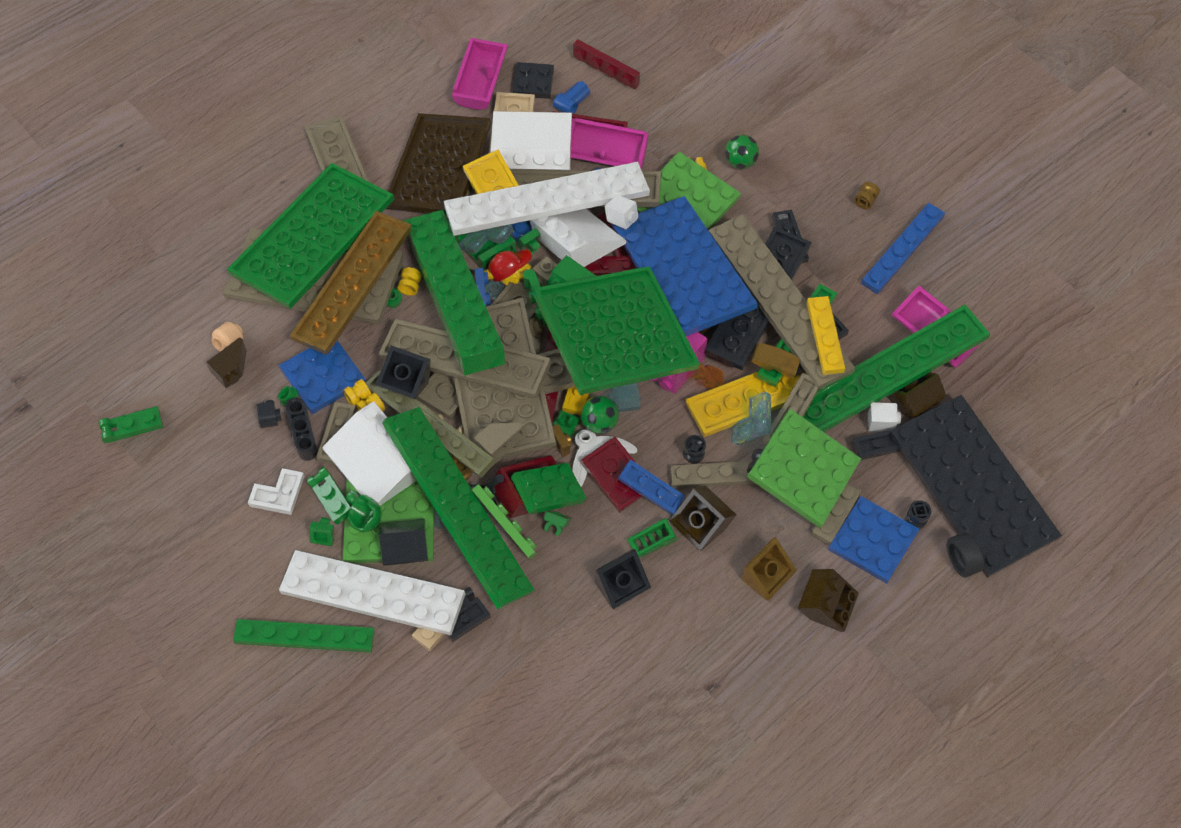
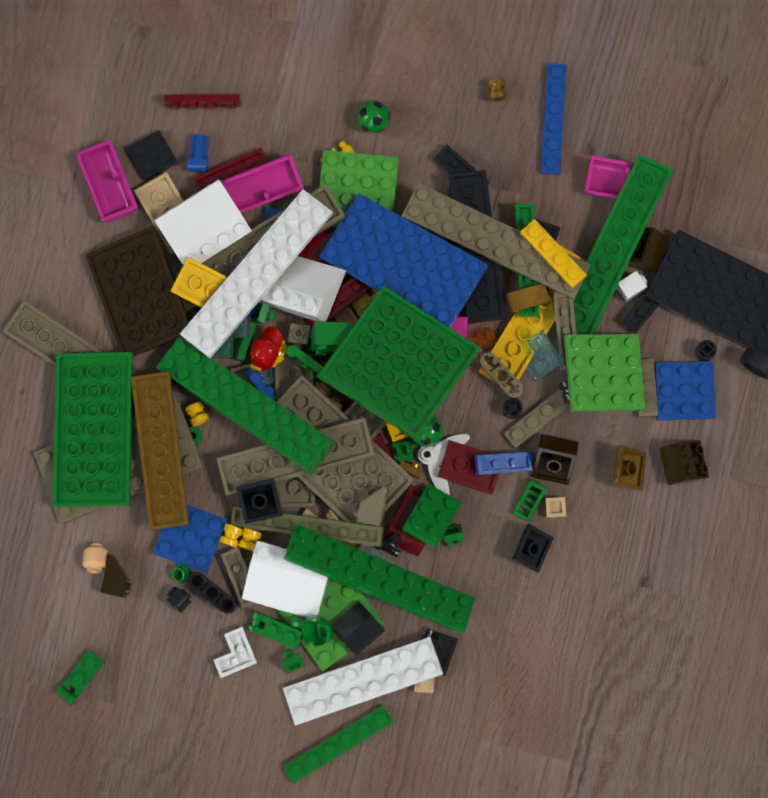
camera: 30 degrees left, 20 degrees up
(511, 528) = (427, 564): bright green plate -> none
(621, 211) = (324, 246): white brick -> none
(672, 560) = (555, 507): none -> tan plate
(707, 404) = (495, 361): none -> dark tan beam

